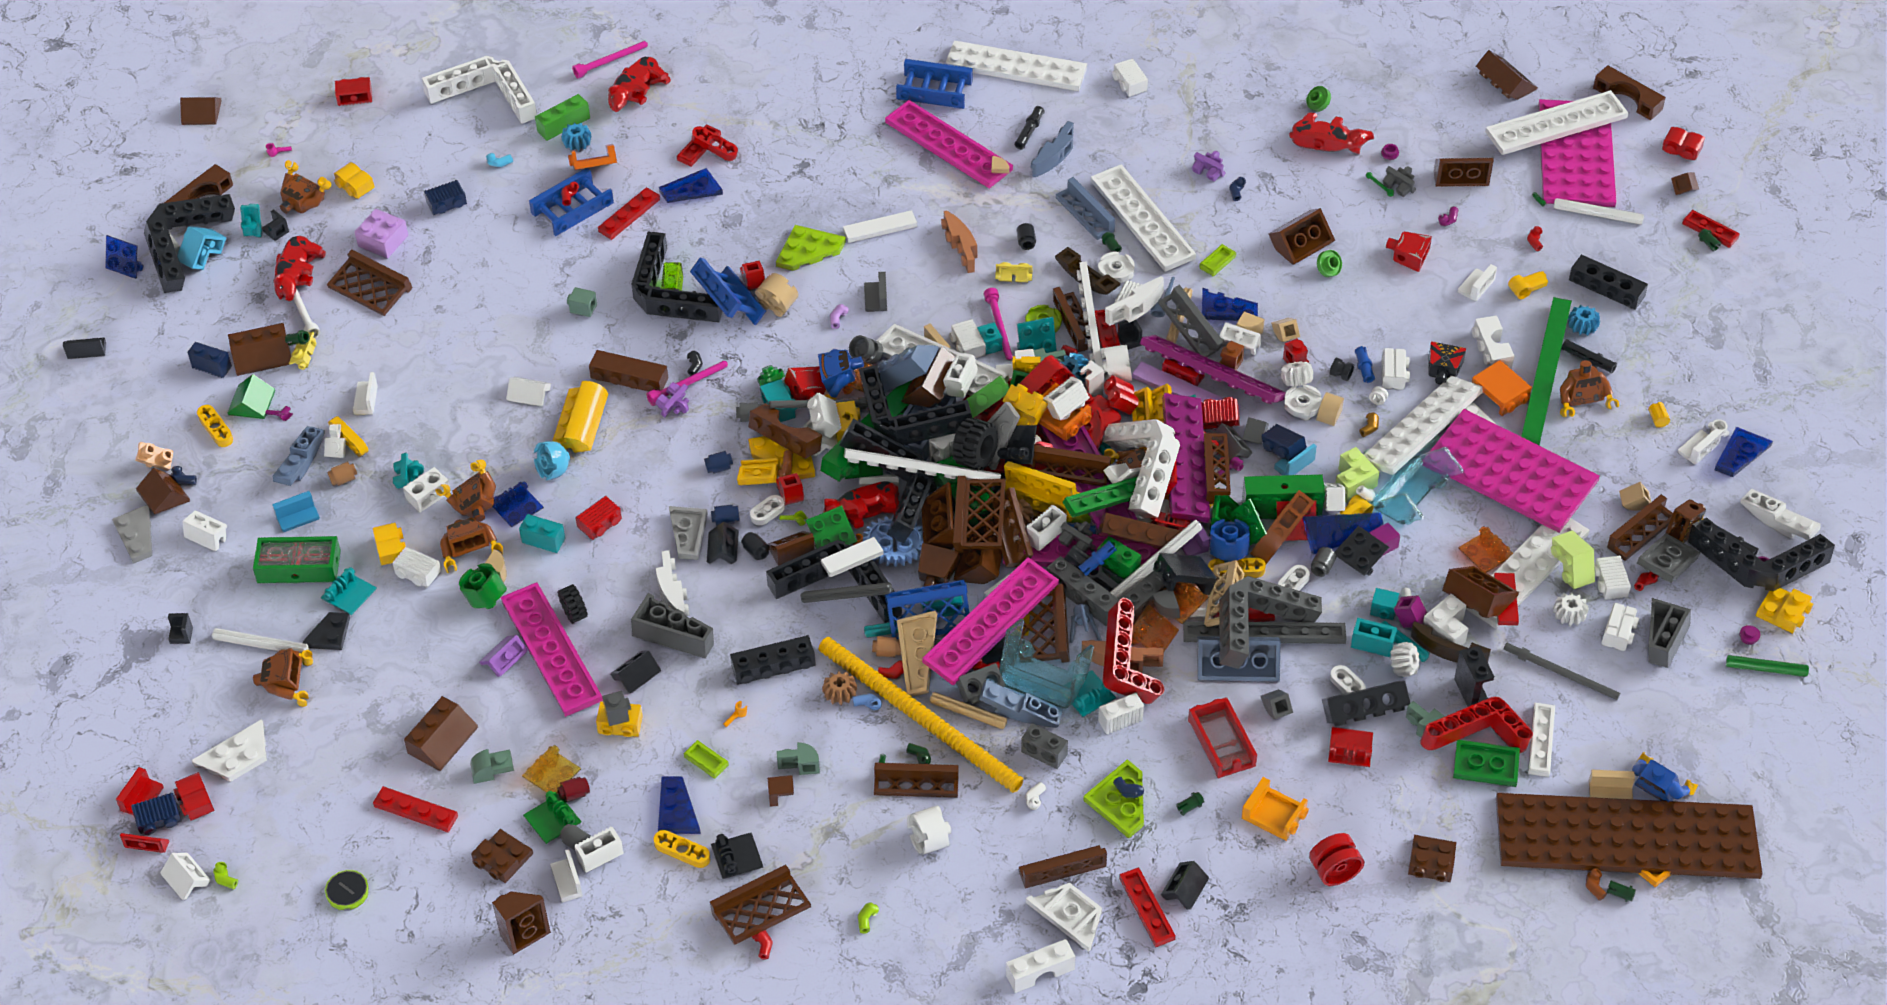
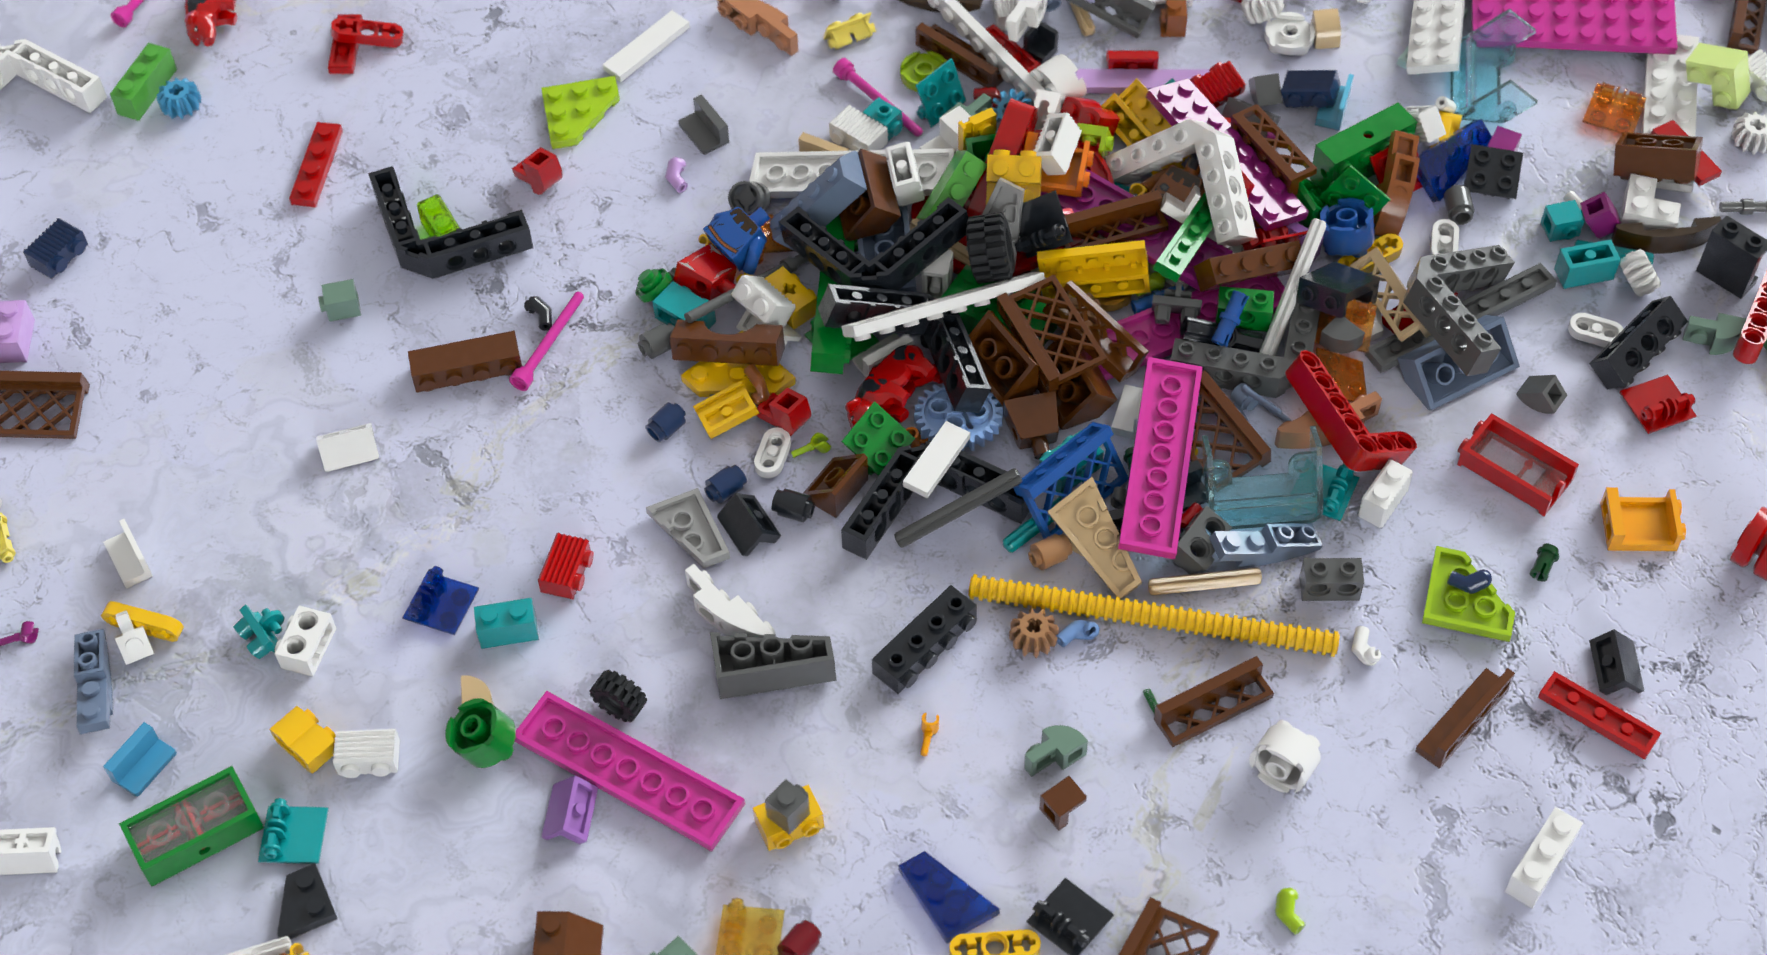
camera: 30 degrees left, 5 degrees up
(342, 473) = (170, 676): medium nougat brick -> none
(465, 537) = (409, 678): dark orange torso -> none
(473, 495) = (380, 618): dark orange torso -> none
(498, 162) = (93, 174): medium azure arm -> none
(551, 459) = (448, 521): medium azure cylinder -> none
(552, 197) = (217, 165): blue fence -> none
(569, 191) = (223, 170): red arm -> none
(581, 416) = (444, 449): yellow brick -> none
(591, 162) = (245, 102): orange panel -> none
(636, 671) = (760, 741): black panel -> none
(677, 393) = (548, 379): medium lavender hips -> none
(692, 186) = (375, 97): clear blue wing -> none
(706, 759) = (934, 812): lime tile -> none
(727, 291) = (525, 202): blue fence -> none
(776, 294) = (587, 180): tan brick -> none
(893, 672) = (1081, 577): red arm -> none
(920, 752) = (1192, 664): dark green arm -> none
(1046, 527) = (1136, 308): white brick -> none
(1069, 912) = (1520, 770): white wing -> none
(1110, 410) = (1095, 135): none -> lime bracket
(1217, 370) = (1177, 40): magenta plate -> none
(1356, 471) = (1413, 83): yellowish green brick -> none
(1372, 425) = (1383, 27): pearl gold arm -> none

